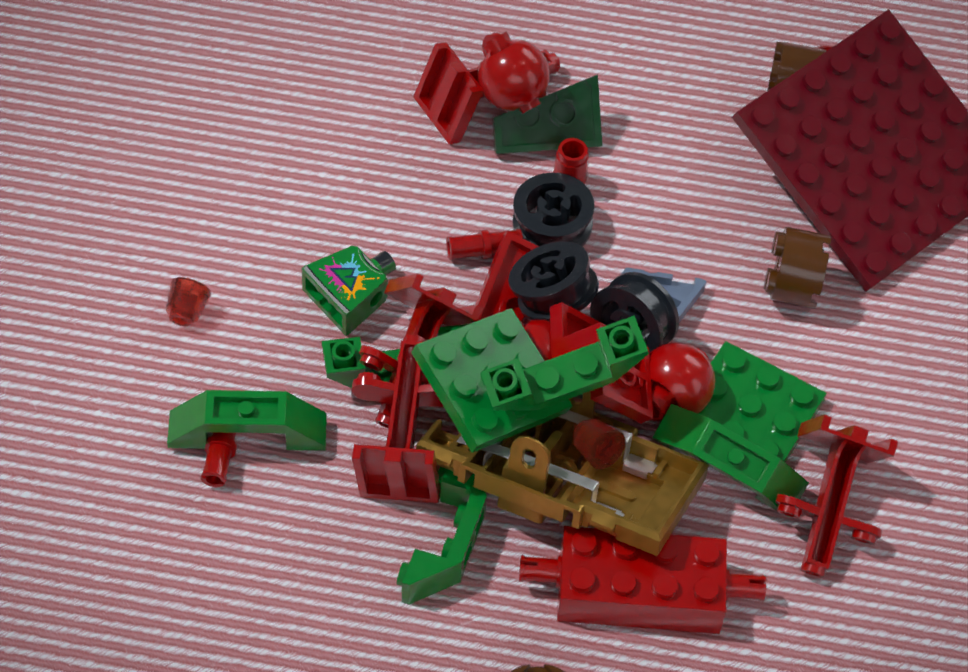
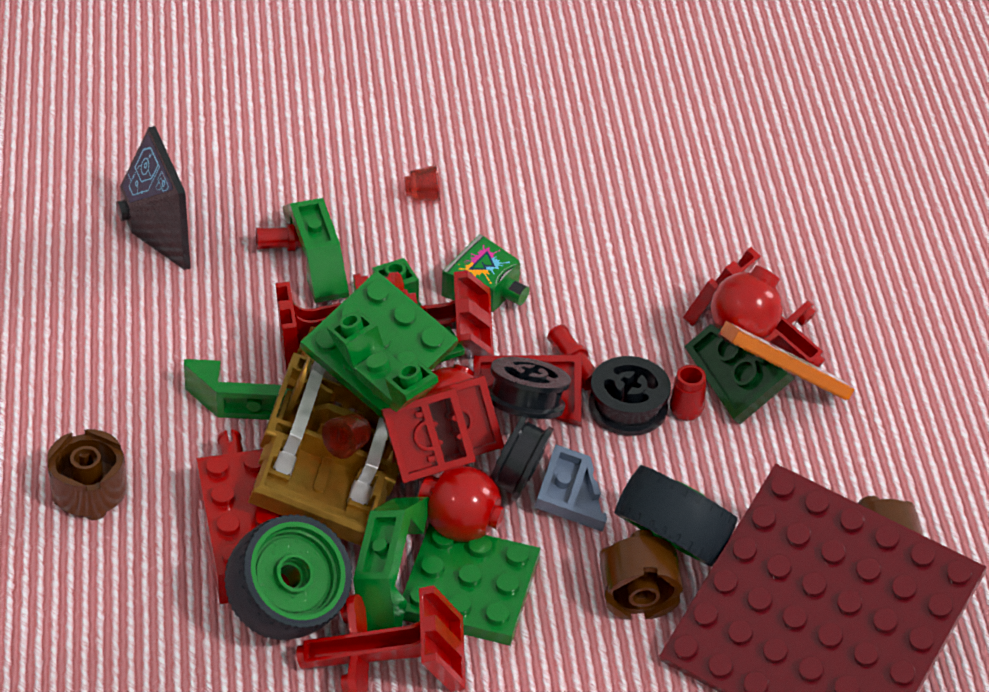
camera: 75 degrees right, 10 degrees down
(149, 551) = (156, 201): none -> black slope
(574, 73) = (786, 361): none -> orange tile
(751, 213) = (676, 514): none -> black wheel
(763, 543) = (310, 560): none -> wheel

